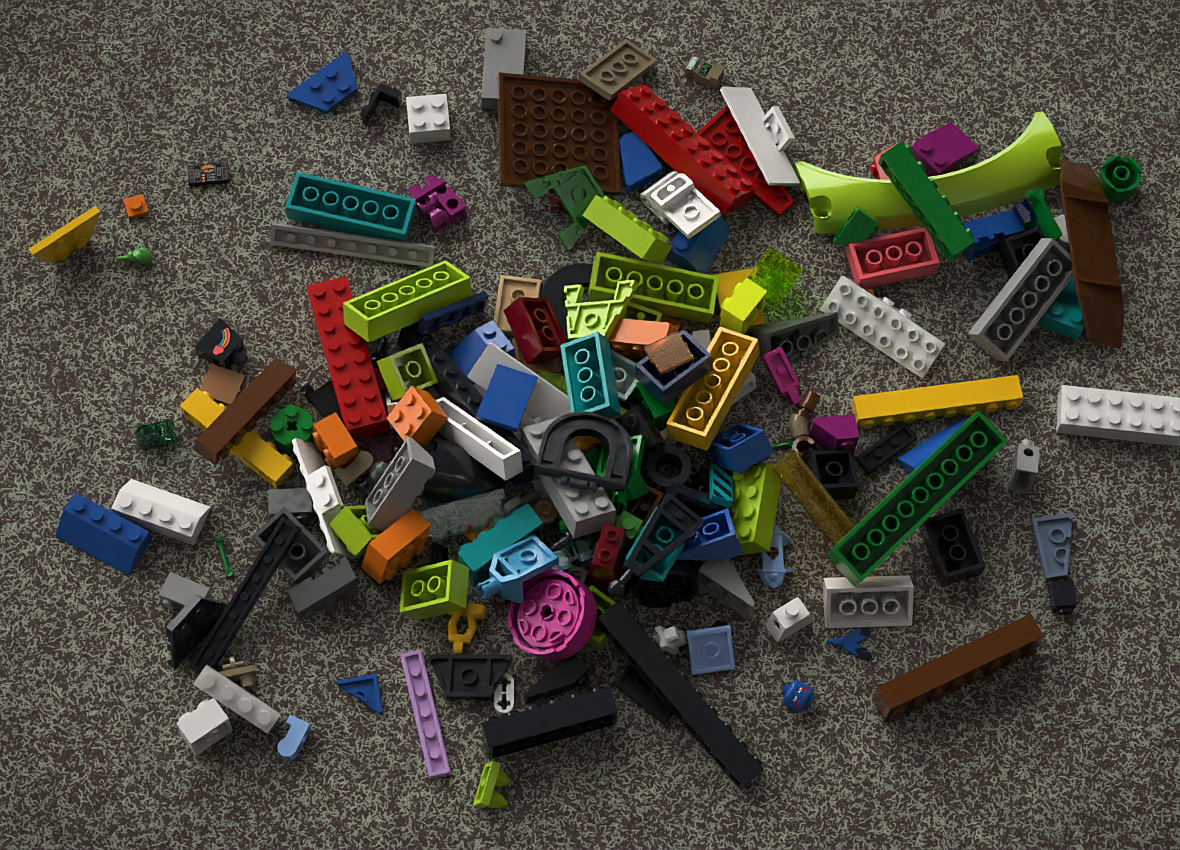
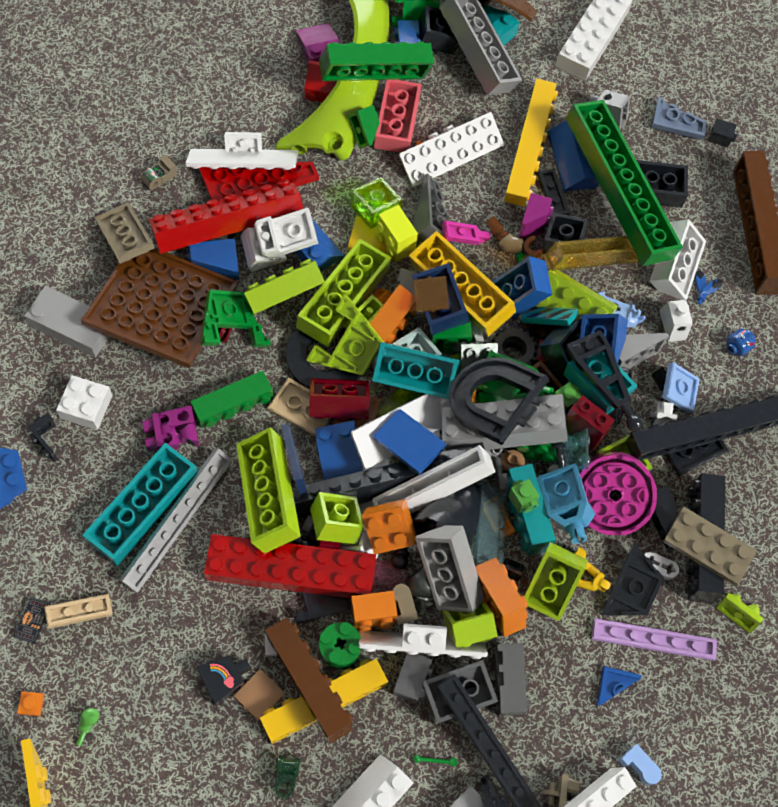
camera: 70 degrees left, 0 degrees up
(231, 205) = (78, 611): none -> tan tile
(492, 240) = (232, 399): none -> green brick
(499, 522) = (524, 496): none -> bright green brick
(531, 717) = (710, 546): none -> dark tan plate
(1024, 212) = (404, 13): clear blue slope -> none

